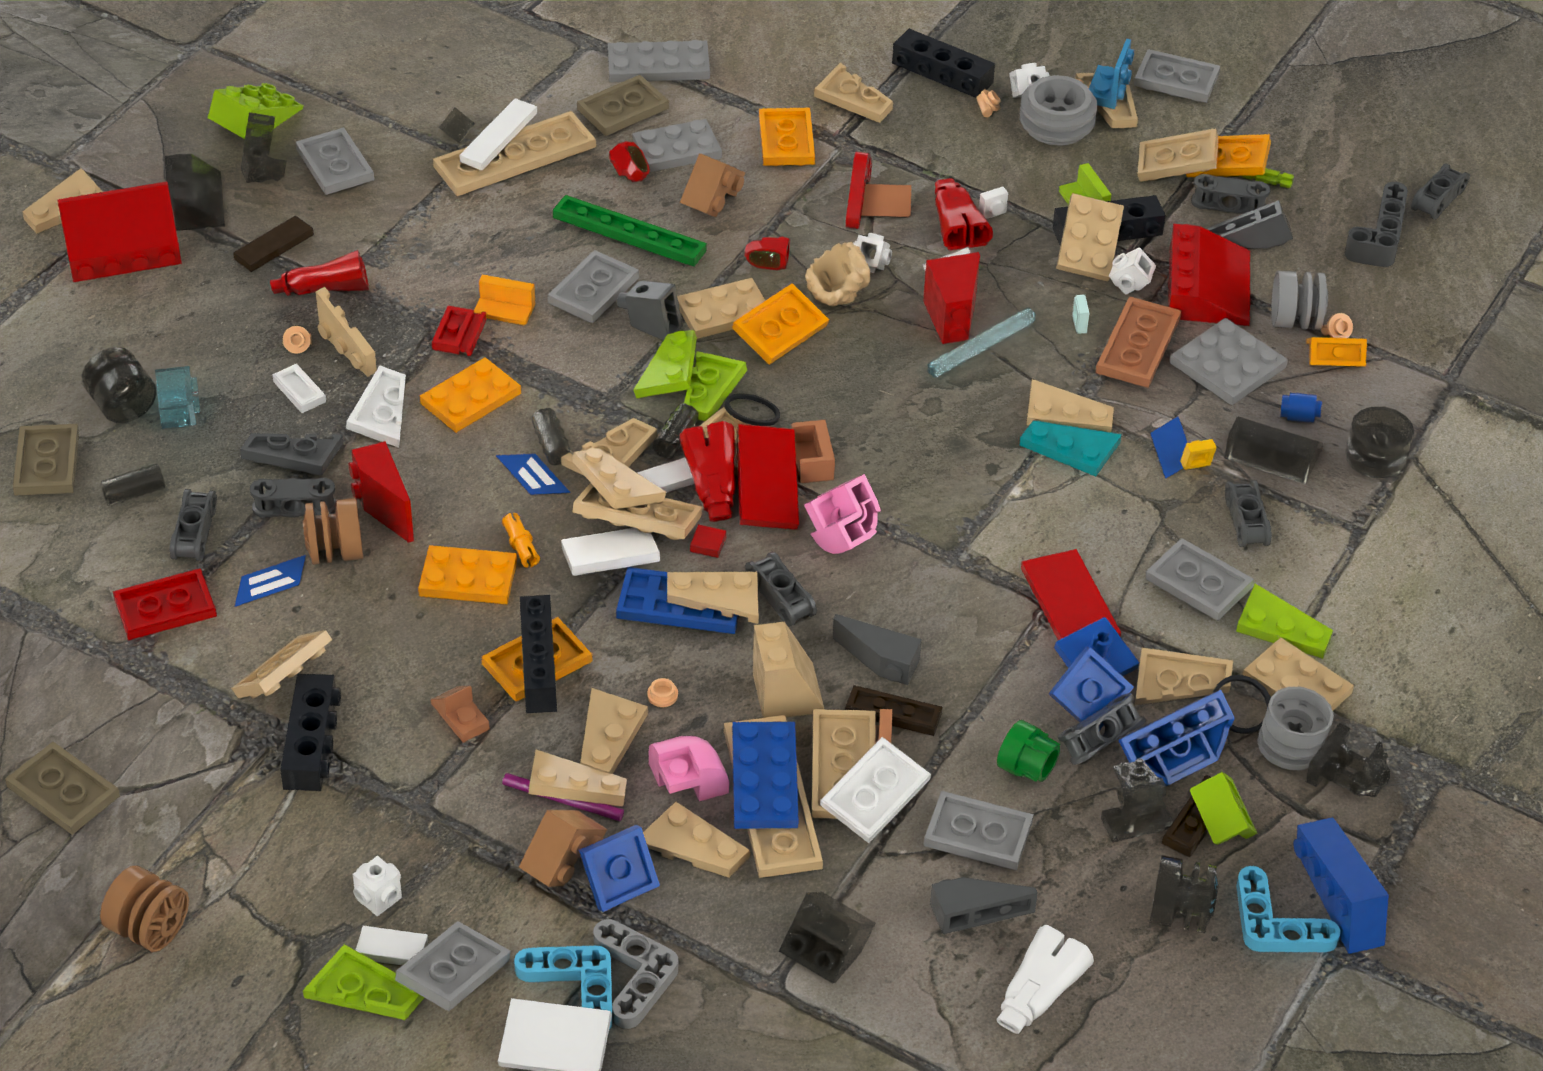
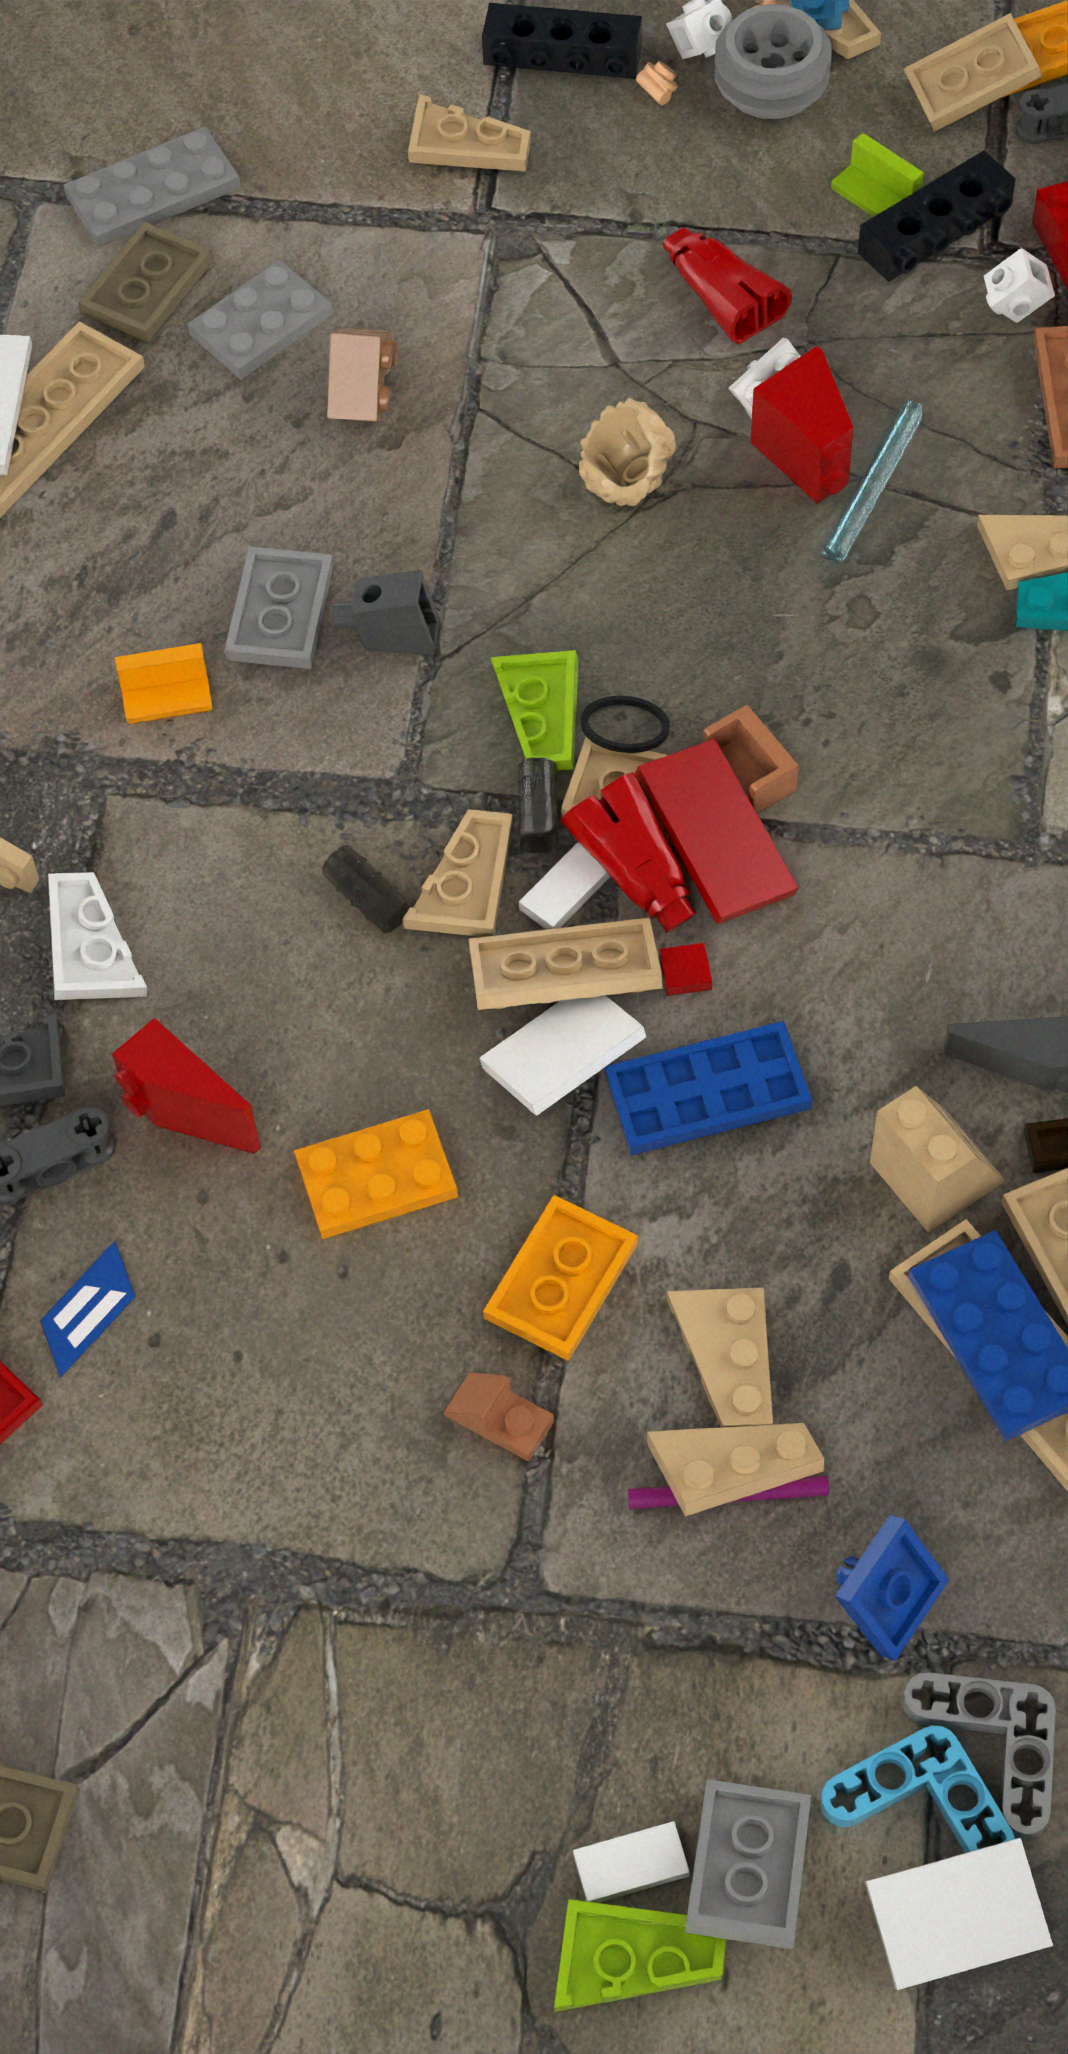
camera: 20 degrees left, 15 degrees up
(144, 908) = (247, 1987): medium nougat wheel -> none
(284, 663) = (203, 1459): tan plate -> none
(309, 732) = (327, 1626): black brick -> none
(333, 531) = (149, 1195): medium nougat wheel -> none
(377, 885) = (560, 1792): white brick -> none
(458, 330) = (126, 762): red plate -> none
(470, 394) = (203, 863): light orange plate -> none
(520, 540) = (421, 1083): light orange pin -> none
(533, 474) = (368, 959): blue sticker -> none
(538, 654) = (574, 1279): black brick -> none
(557, 845) = (791, 1578): medium nougat brick -> none
(616, 481) = (510, 931): tan wing -> none
(629, 161) = (214, 376): red rock -> none
(629, 230) = (276, 491): green plate -> none
(662, 693) = (769, 1255): light nougat plate -> none
(670, 367) = (466, 698): lime wing -> none
(687, 764) = (882, 1368): bright pink brick -> none
(691, 838) = (948, 1481): tan wing -> none
(718, 307) = (486, 567): tan plate -> none
(720, 591) = (763, 1054): tan wing -> none
(768, 253) = (499, 450): red rock -> none
(780, 323) = (585, 565): light orange plate -> none
(782, 589) = (856, 1027): dark grey piece -> none
(786, 136) = (411, 245): light orange plate -> none
(844, 515) = (863, 853): bright pink brick -> none
(860, 175) = (562, 264): red beam -> none
(872, 242) = (647, 376): white brick -> none
(887, 200) = (608, 298): nougat panel -> none
(993, 202) = (764, 244): white plate -> none
(1080, 314) = (985, 382): light aqua tile -> none
(1090, 237) = (934, 253): tan plate -> none

